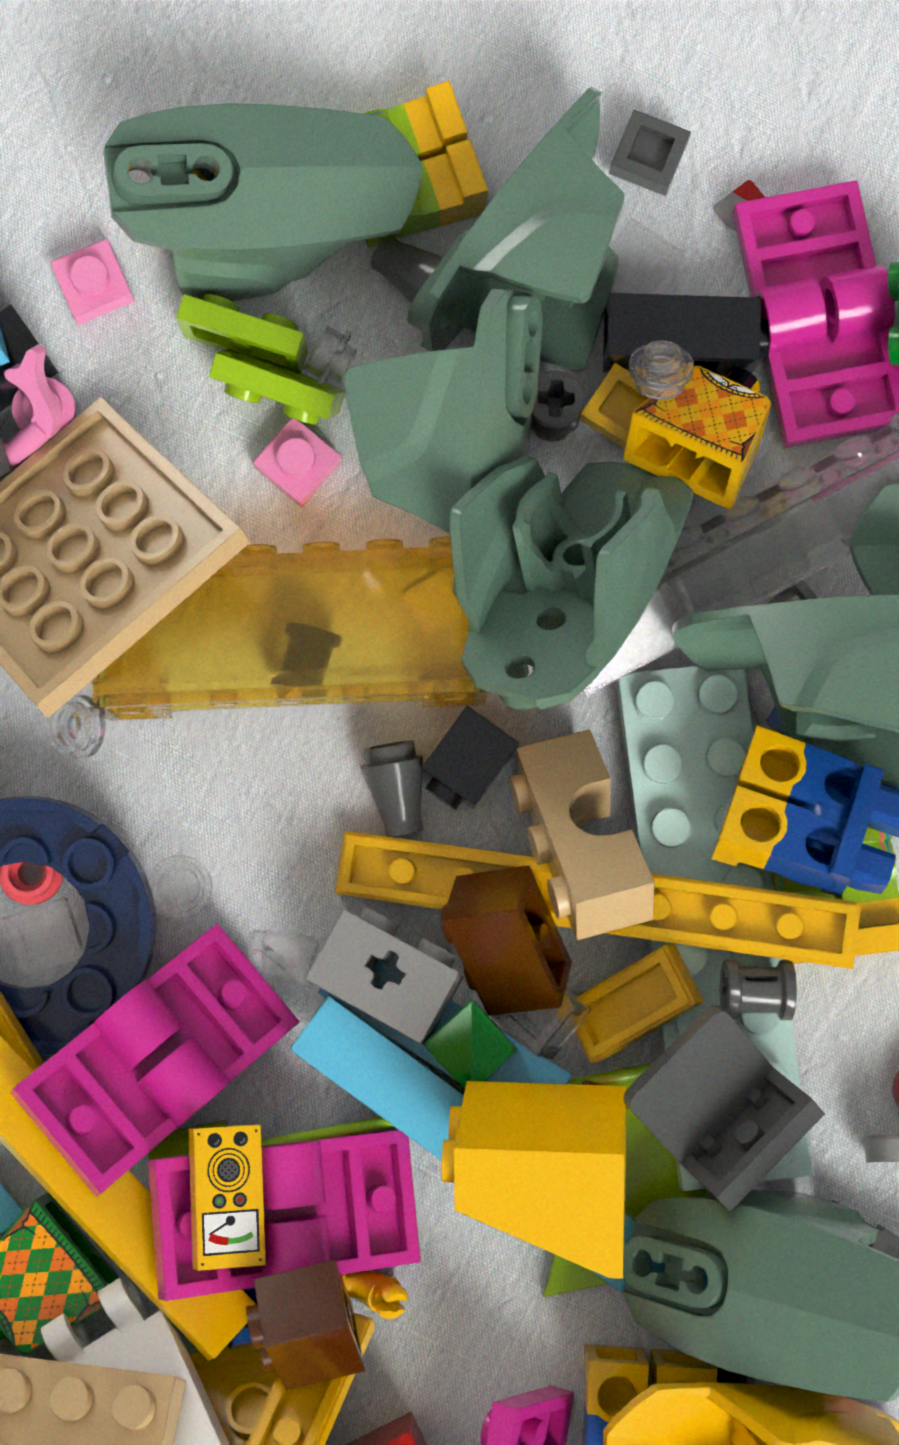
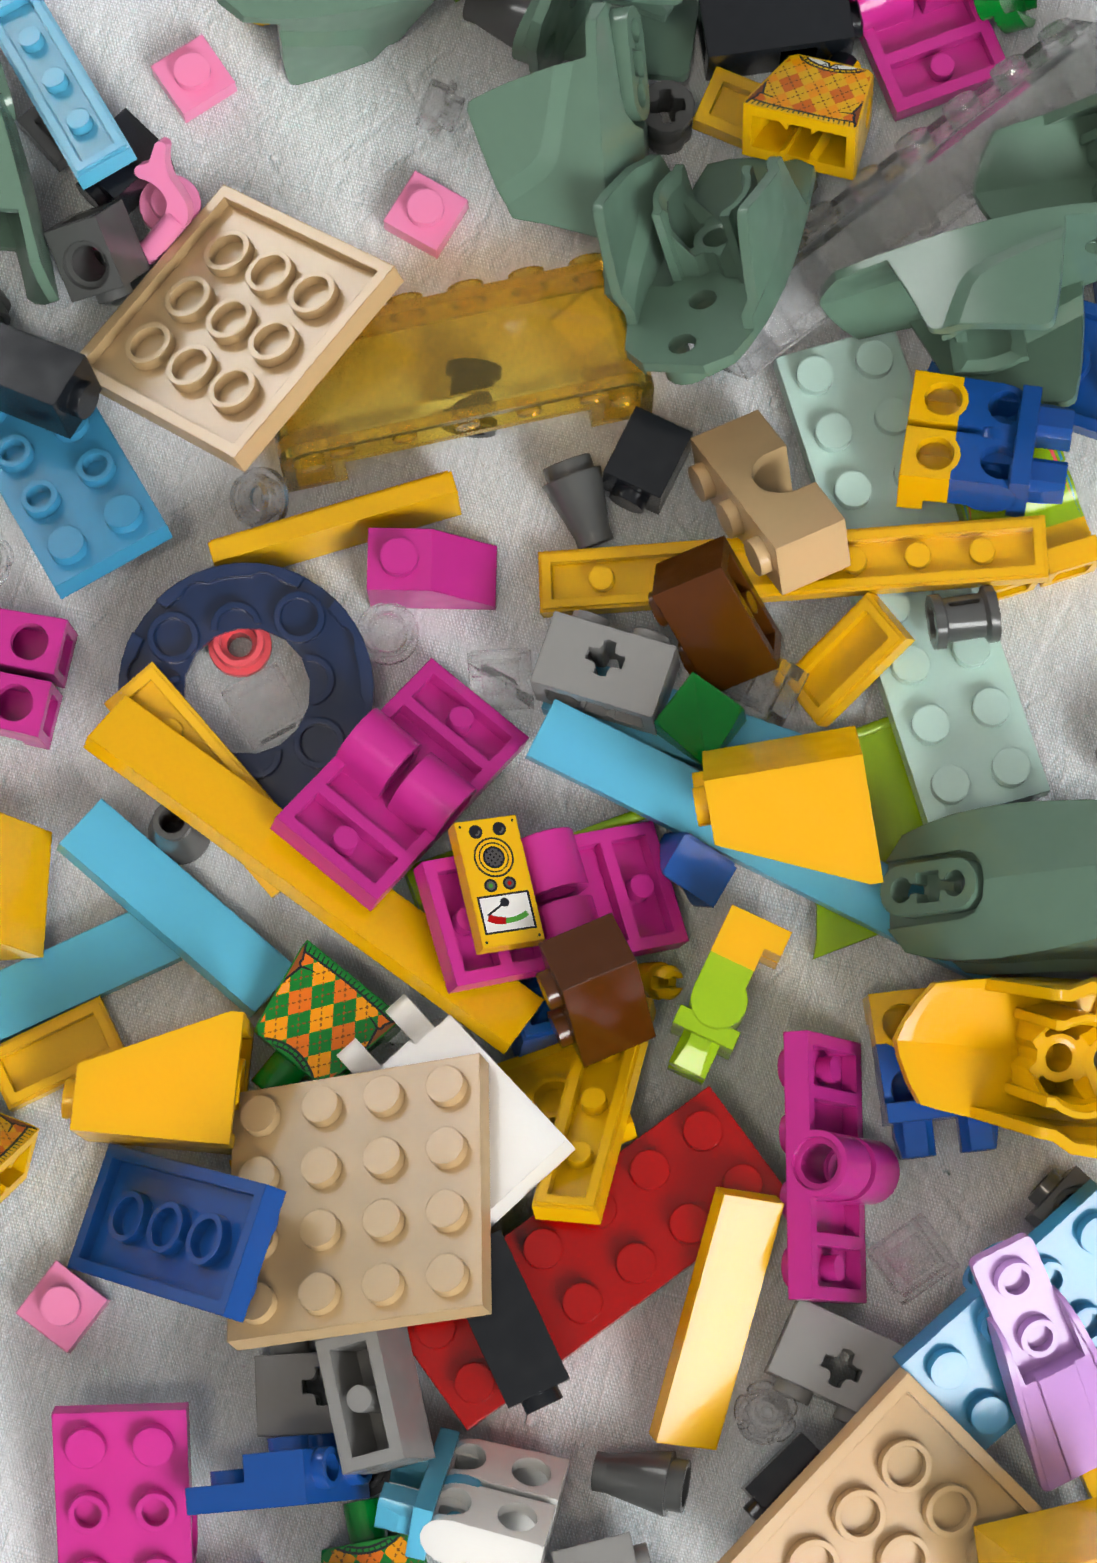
camera: 10 degrees left, 5 degrees down
(146, 770) = (341, 523): none -> yellow tile
(220, 324) = (371, 103): lime plate -> none
(232, 832) = (430, 570): none -> dark pink slope
(252, 378) = (367, 141): lime plate -> none
(429, 1196) = (695, 868): none -> blue slope
(430, 1355) = (720, 992): none -> lime hips
(661, 369) = (762, 60): clear plate -> none
(721, 1107) = (945, 723): dark grey bracket -> none

